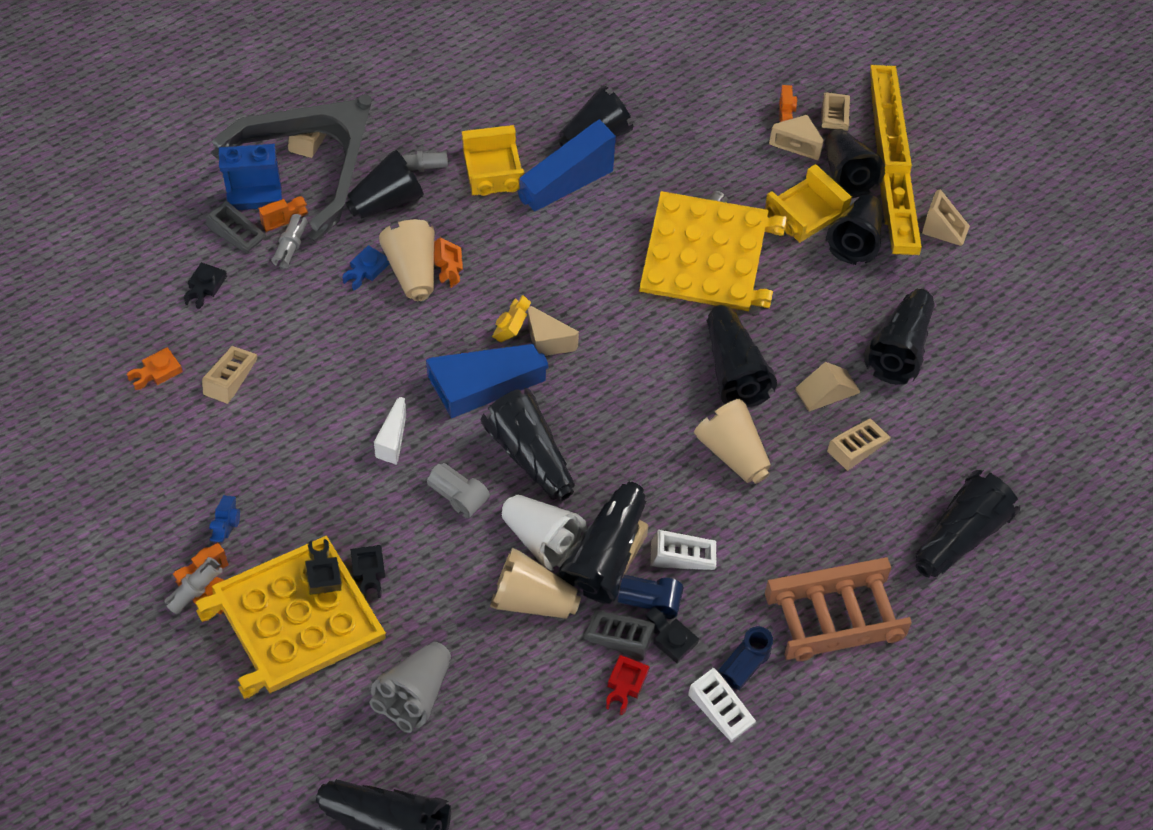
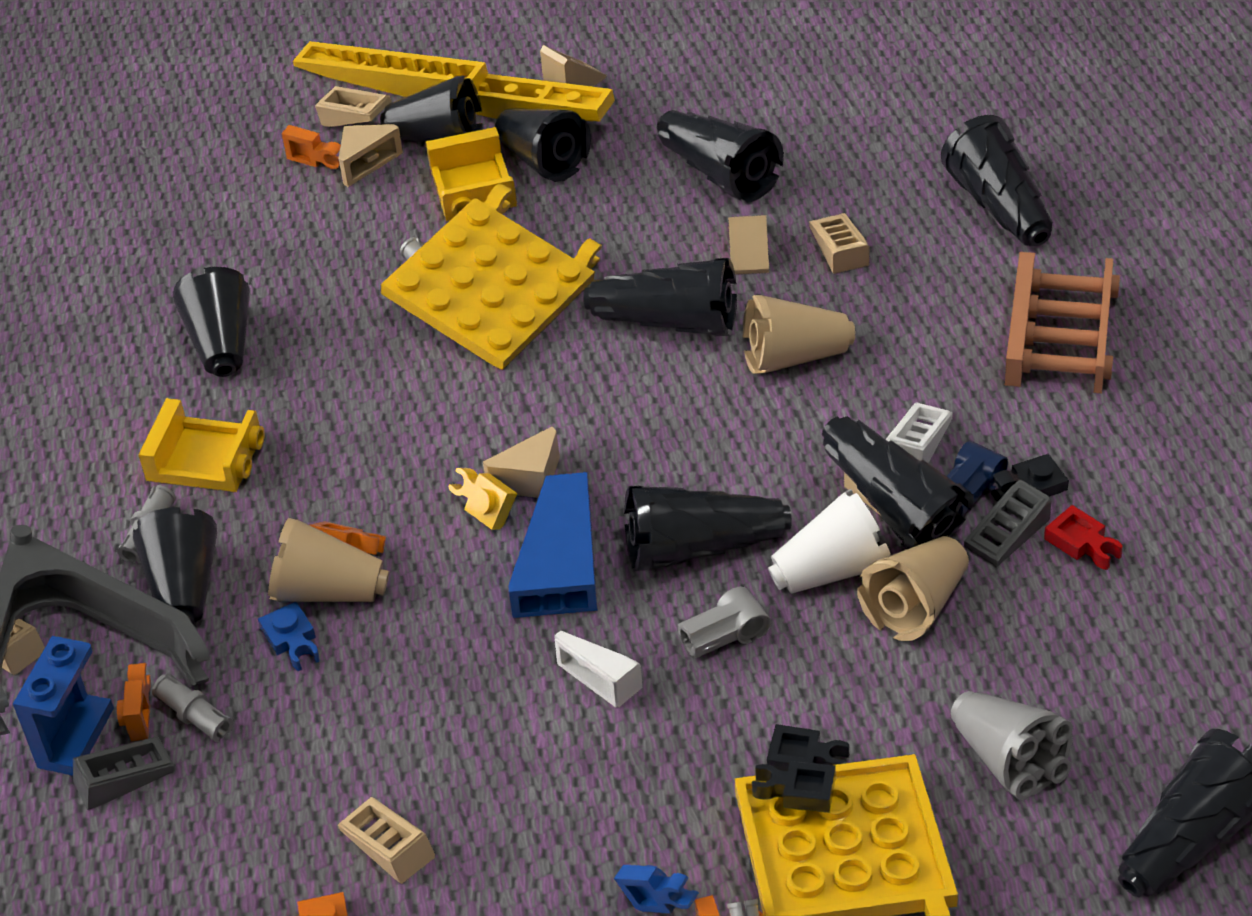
camera: 60 degrees left, 10 degrees down
(204, 281) = (201, 829): black plate -> none
(570, 167) = (274, 364): blue slope -> none
(704, 702) = (1135, 474): white slope -> none
(746, 659) = (1093, 416): dark blue piece -> none

